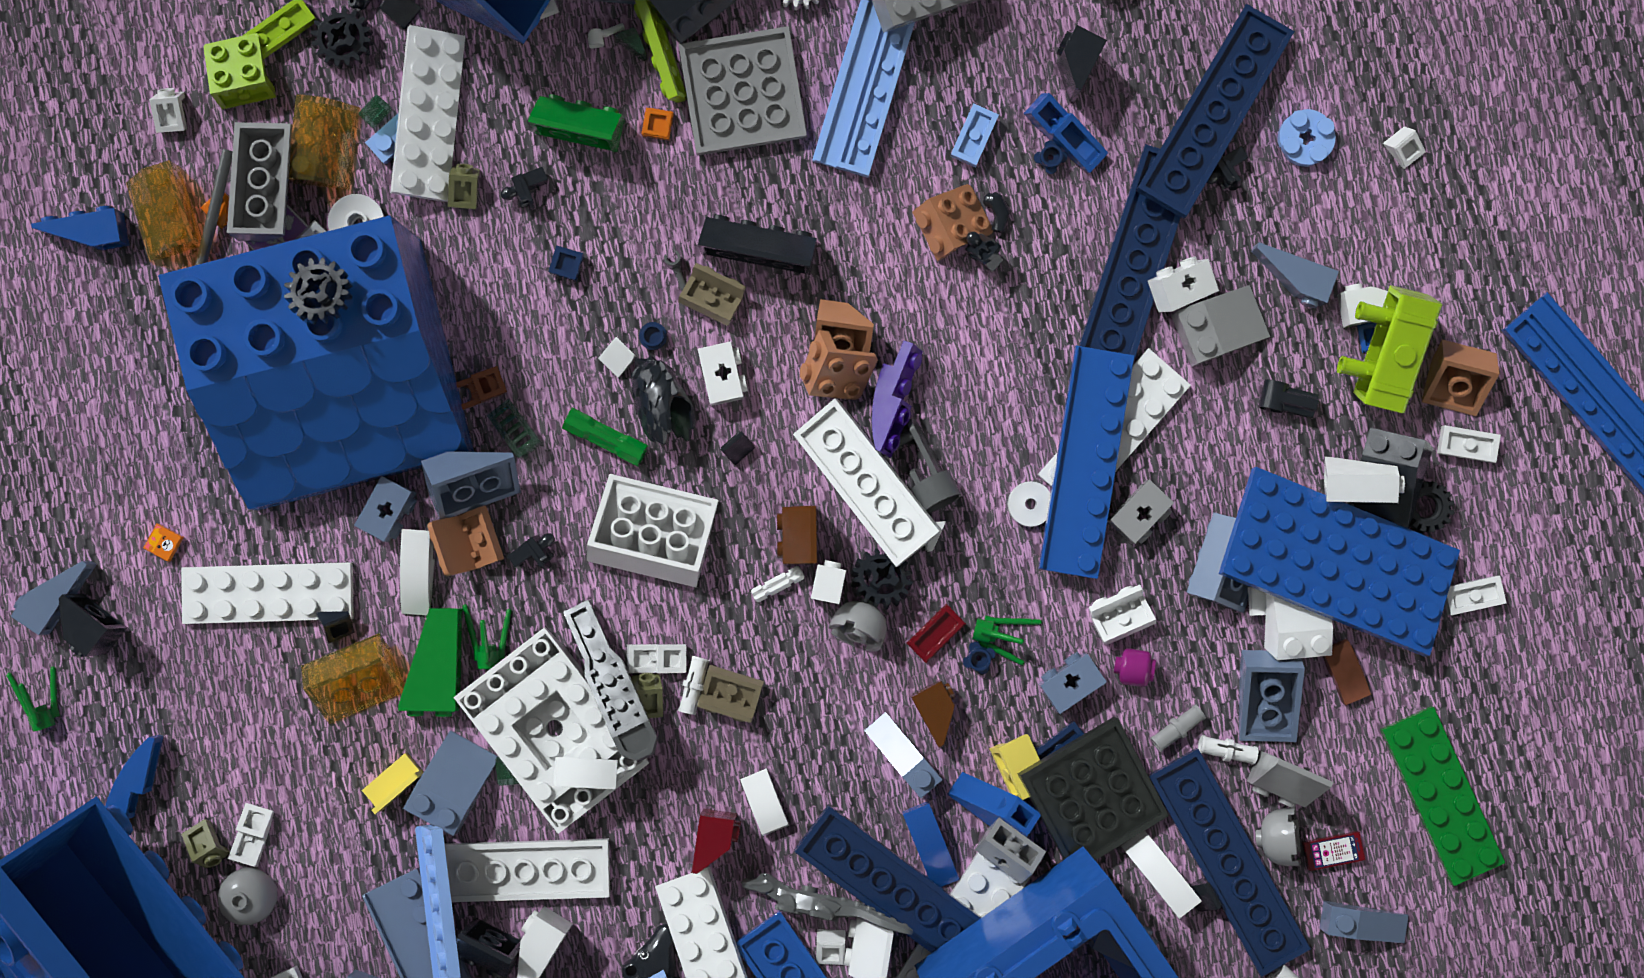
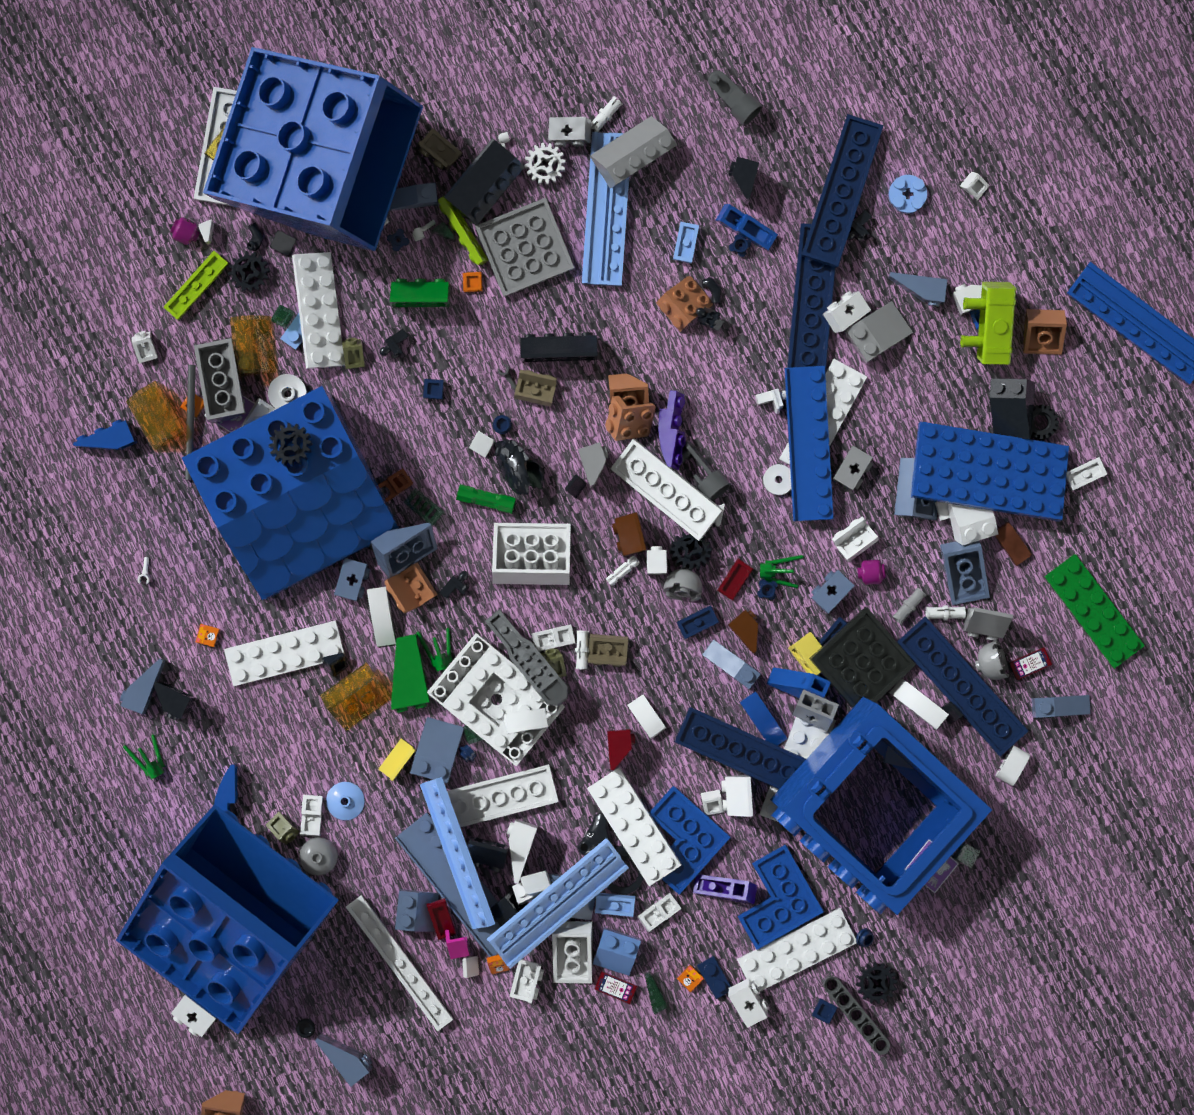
camera: 10 degrees left, 0 degrees up
(95, 433) = (145, 571): none -> white hand
(237, 71) = (185, 310): lime bracket -> none
(318, 820) = (355, 801): none -> light blue dish
(494, 798) = (467, 754): none -> dark blue plate
(571, 45) = (403, 240): none -> dark blue plate
(711, 360) = (546, 430): white brick -> none
(770, 418) = (593, 461): none -> light grey slope
(818, 905) = (697, 774): dark grey animal -> none
(868, 682) = (697, 622): none -> dark blue plate
(1049, 382) = (772, 396): none -> white piece
(1282, 398) = (928, 371): black piece -> none
(1361, 481) = (991, 415): white slope -> none
(1468, 444) = (1060, 374): white plate -> none

